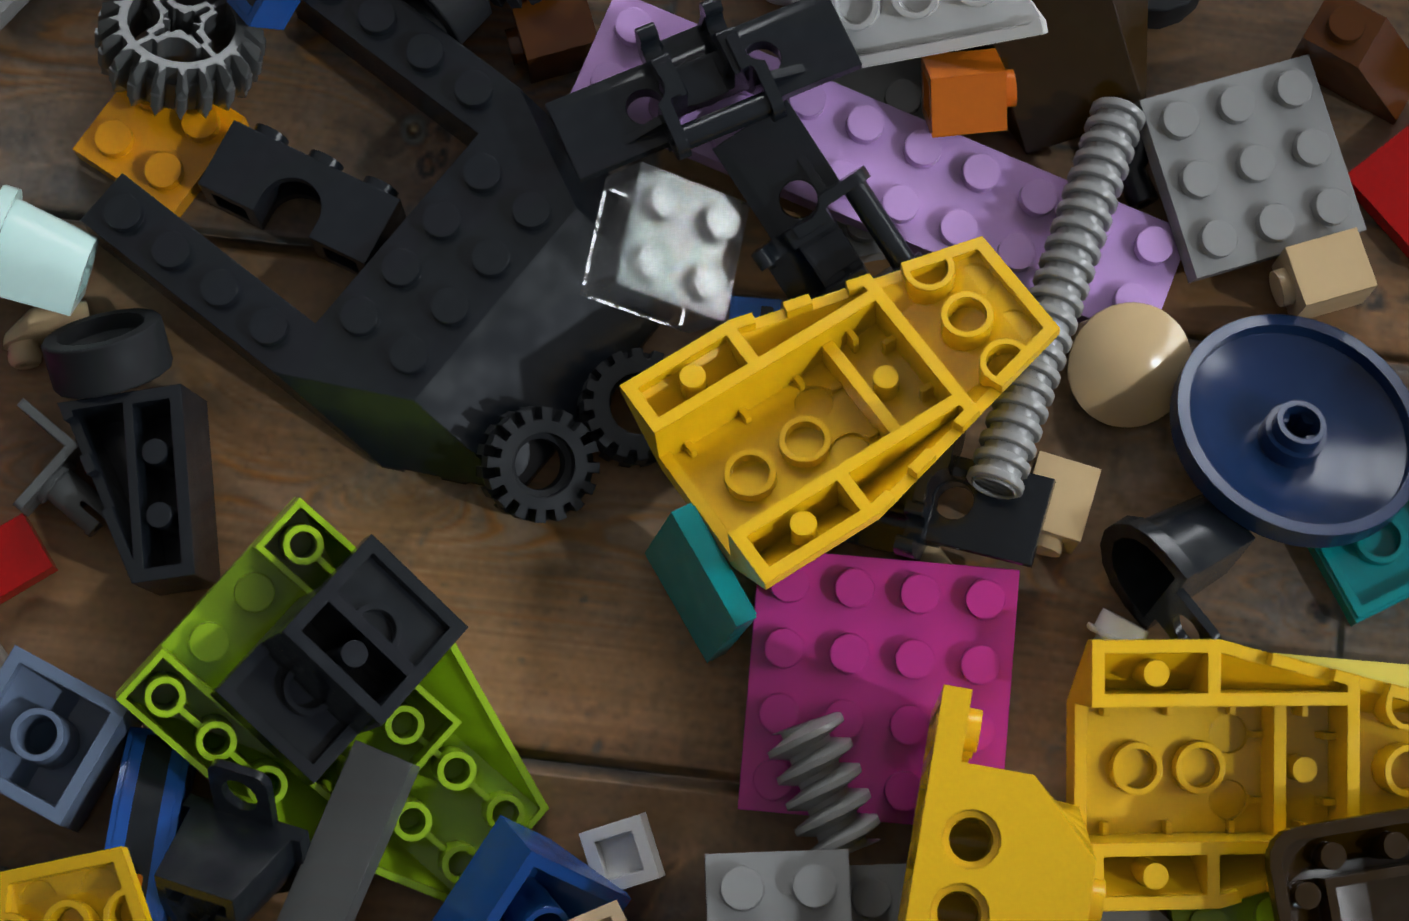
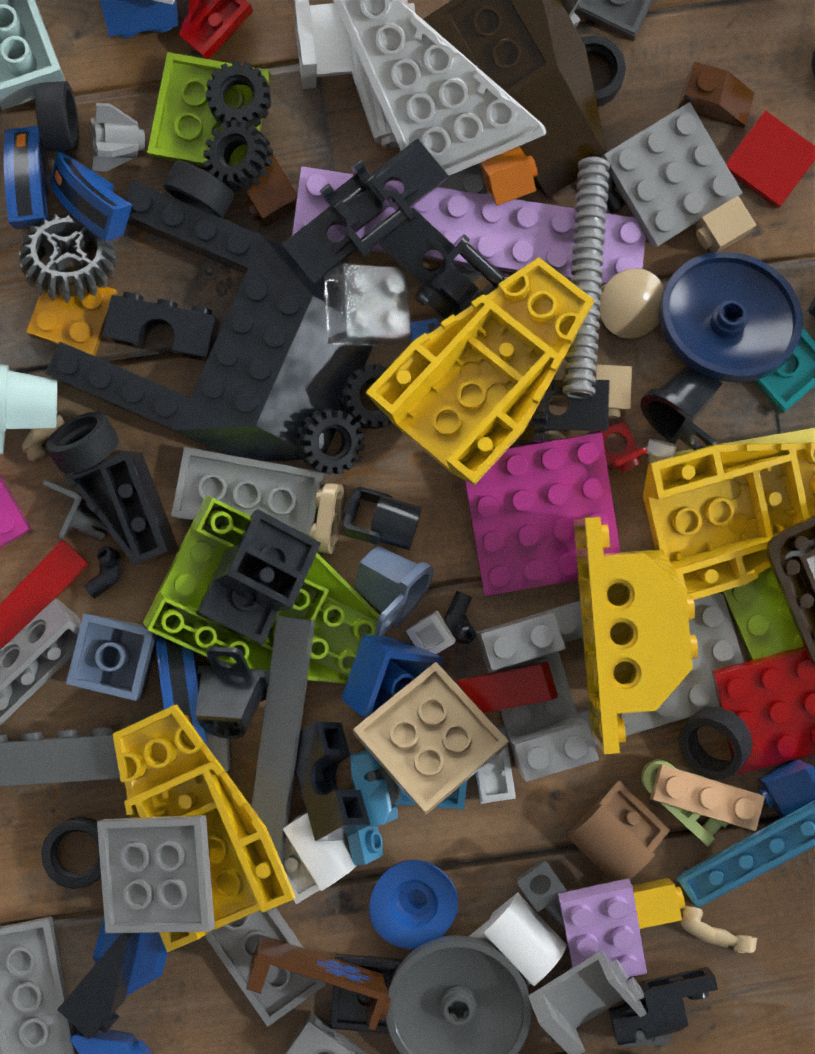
camera: 10 degrees left, 10 degrees up
(86, 592) = (109, 571): none -> black arm
(423, 522) = (247, 485): none -> light grey plate
(505, 574) = (326, 530): none -> tan plate
(576, 745) = (392, 585): none -> sand blue container
(607, 631) = (392, 522): none -> black piece
(677, 839) = (457, 620): none -> black arm
(700, 582) = (434, 483): teal tile -> none
(825, 785) = (529, 574): light grey piece -> none
(1059, 631) = (630, 456): none -> red bracket

